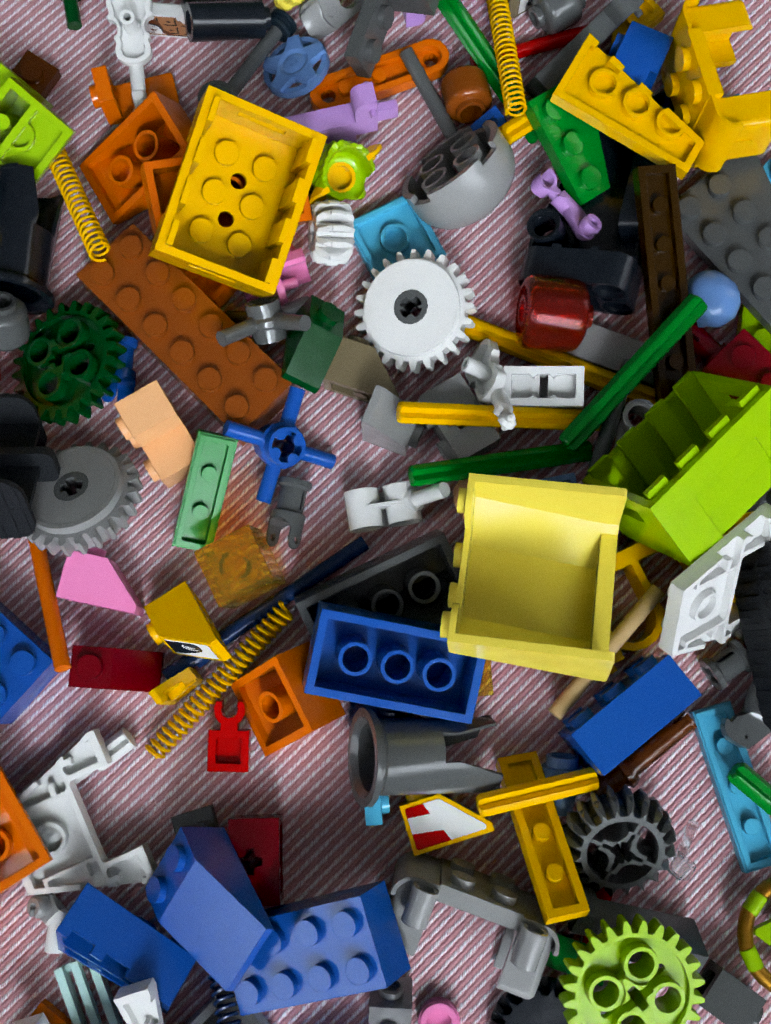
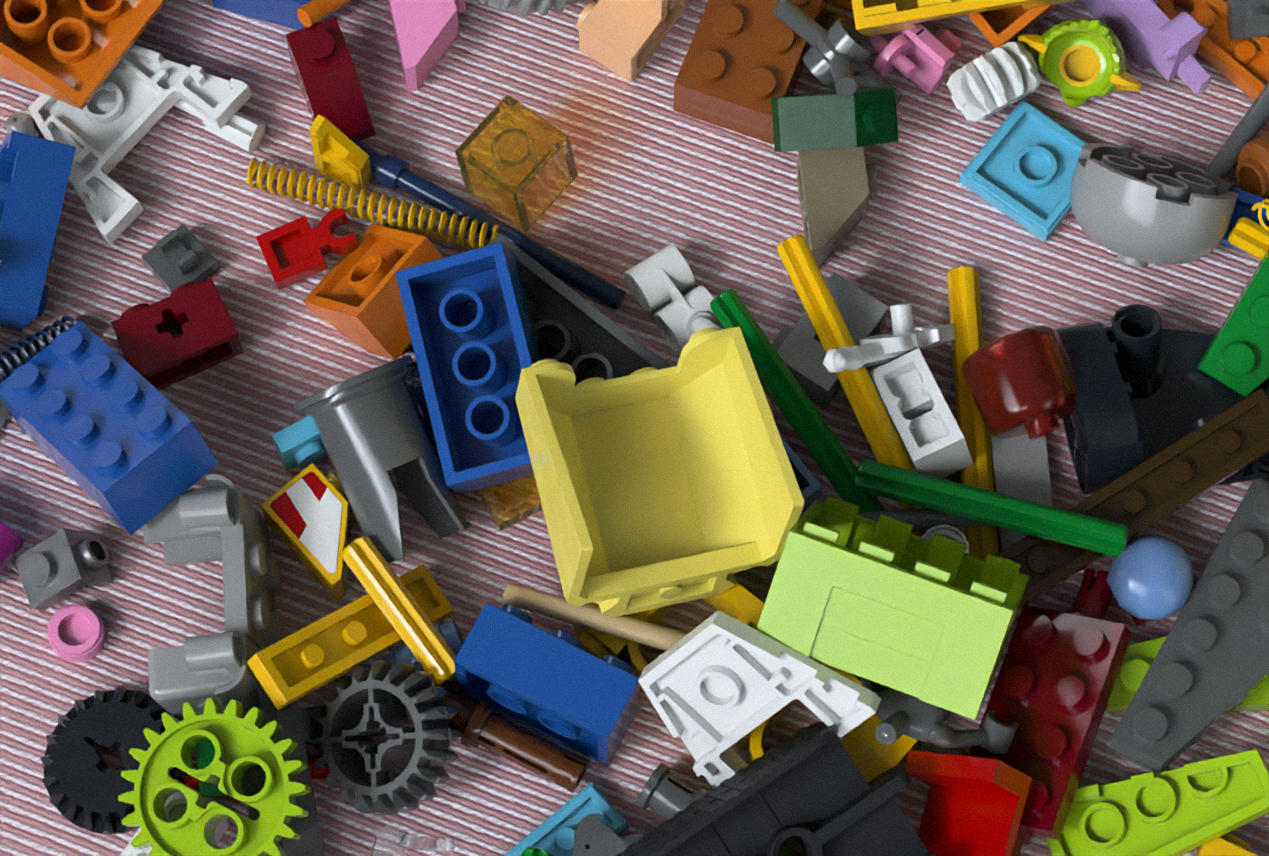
camera: 65 degrees right, 10 degrees down
(185, 625) = (419, 133): yellow slope -> none
(204, 490) = (594, 79): tile -> none
(209, 903) = (110, 285): blue slope -> none
(288, 511) = (608, 194): dark grey piece -> none
(293, 449) = (701, 123): blue bar -> none
(382, 428) = (772, 225): light grey slope -> none
(423, 285) = (944, 224): white gear -> none
(582, 225) = (1171, 377): lavender arm -> none

